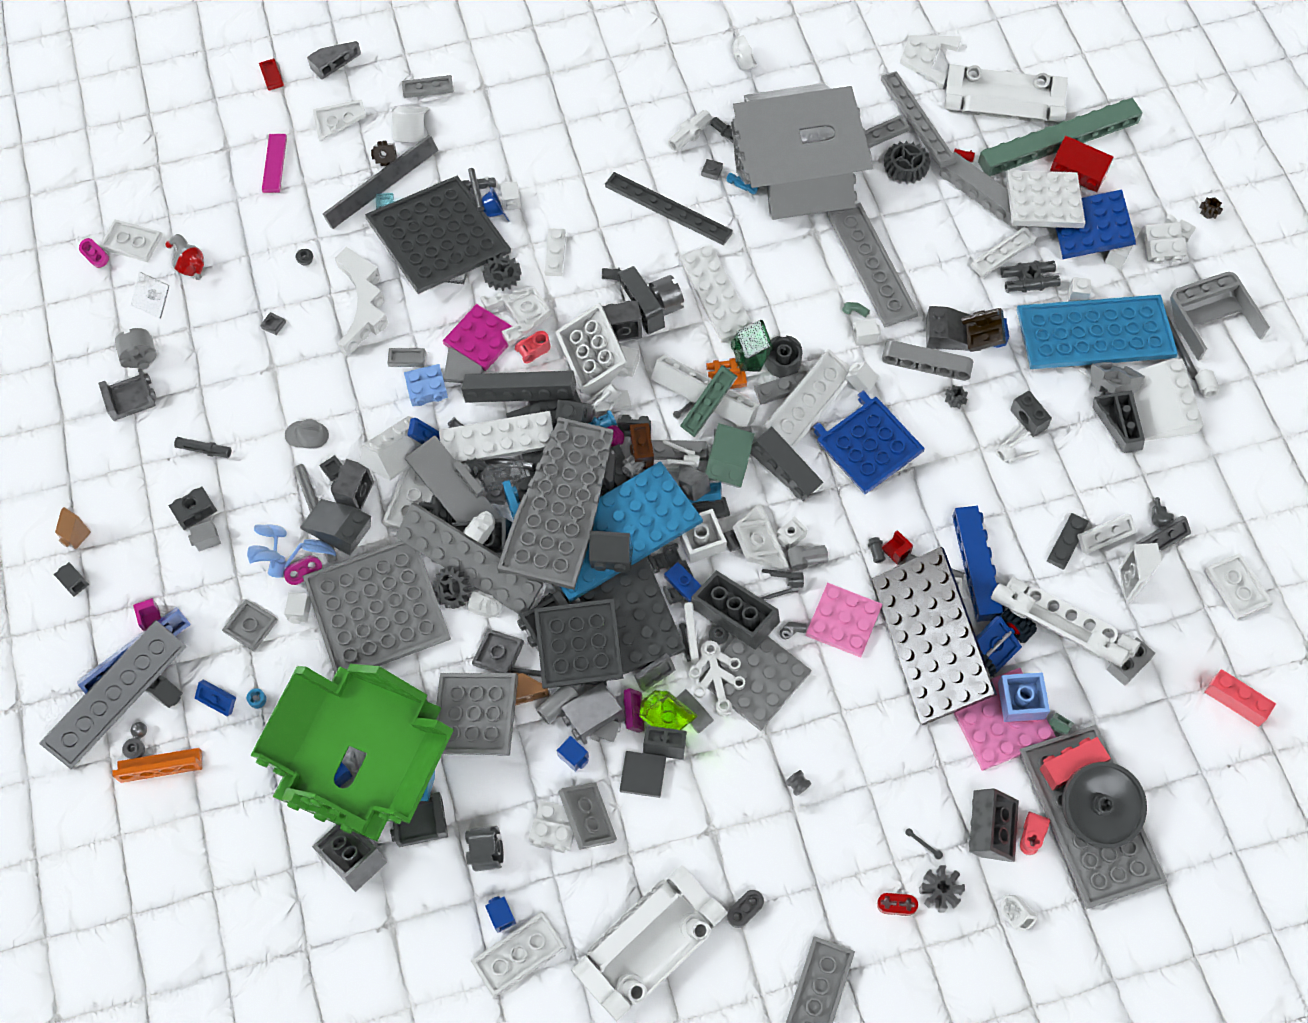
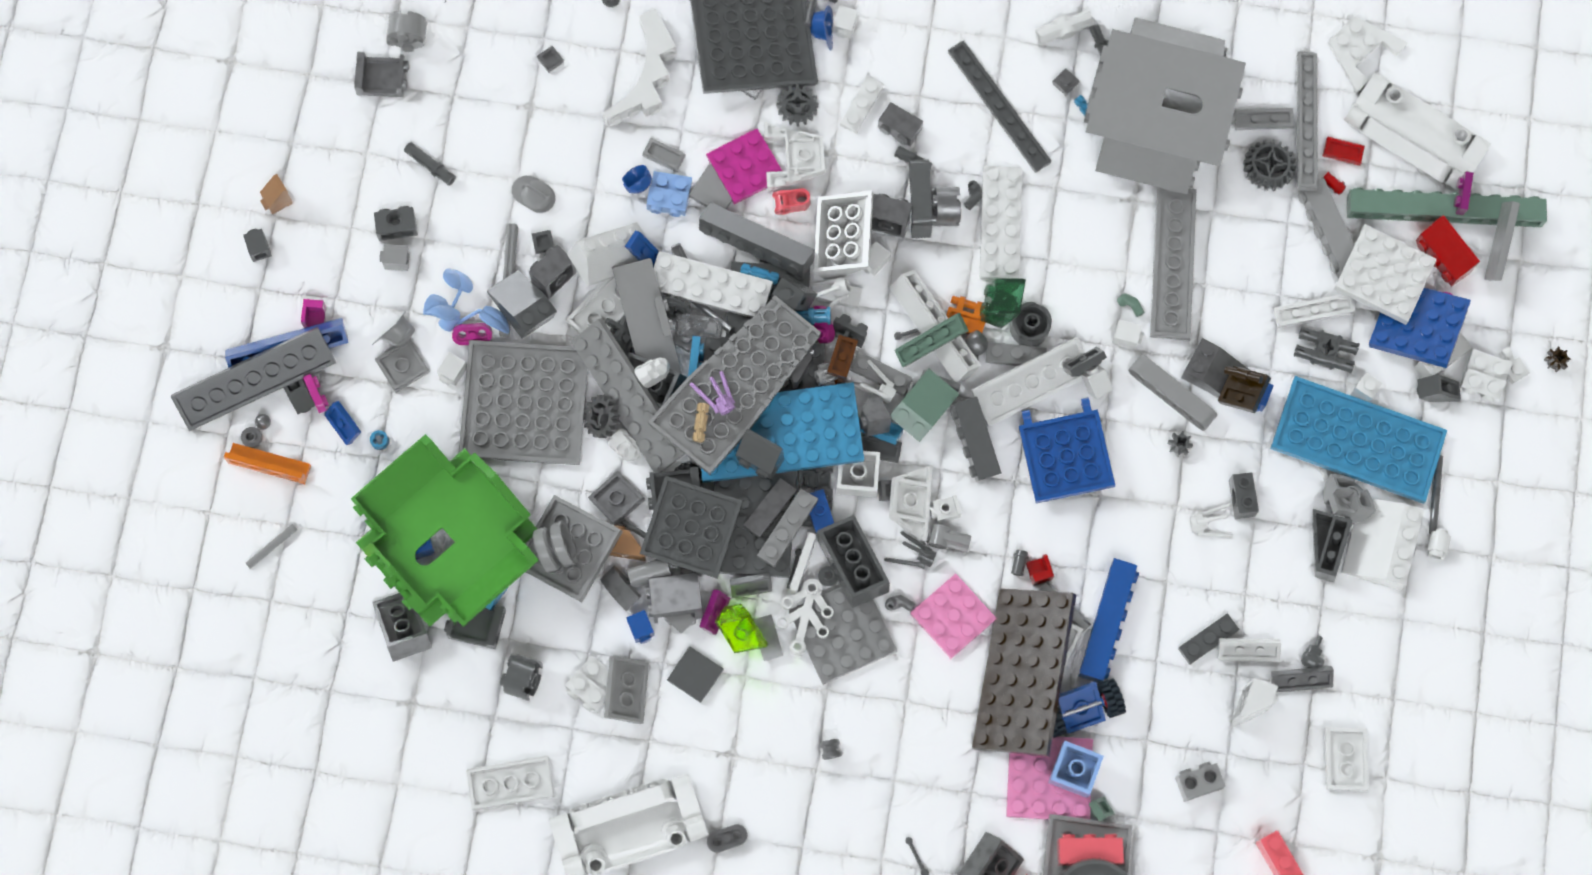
camera: 20 degrees right, 10 degrees up
(172, 675) = (320, 400): none -> dark pink plate
(192, 839) = (271, 546): none -> light grey bar
(233, 598) = (398, 333): none -> light grey piece
(393, 384) = (637, 179): none -> blue hair
(460, 715) = (555, 546): none -> light grey wheel
(500, 913) = (510, 740): blue brick -> none
(535, 409) = (759, 272): none -> dark azure axle
(538, 728) = (619, 588): none -> flat silver slope
(545, 546) = (700, 422): none -> tan axle
(558, 521) = (724, 403): none -> lavender plant
(594, 252) = (900, 124): none -> flat silver brick
(639, 597) = (770, 508): none -> flat silver tile
(663, 607) = (787, 528): none -> light grey plate
(665, 742) = (728, 655): dark grey hinge -> none
(683, 280) = (975, 194): none -> dark grey arm
(747, 388) = (977, 343): none -> flat silver piece
(848, 359) = (1089, 359): none -> dark grey plate
(957, 130) = (1343, 151): none -> red tile
(1020, 602) = (1122, 680): white panel -> none
(1070, 115) = (1462, 200): none -> magenta plate
(1120, 137) = (1502, 241): none -> light grey tile
(1134, 268) = (1438, 389): none -> dark grey slope
(1212, 300) = (1490, 460): light grey windscreen -> none

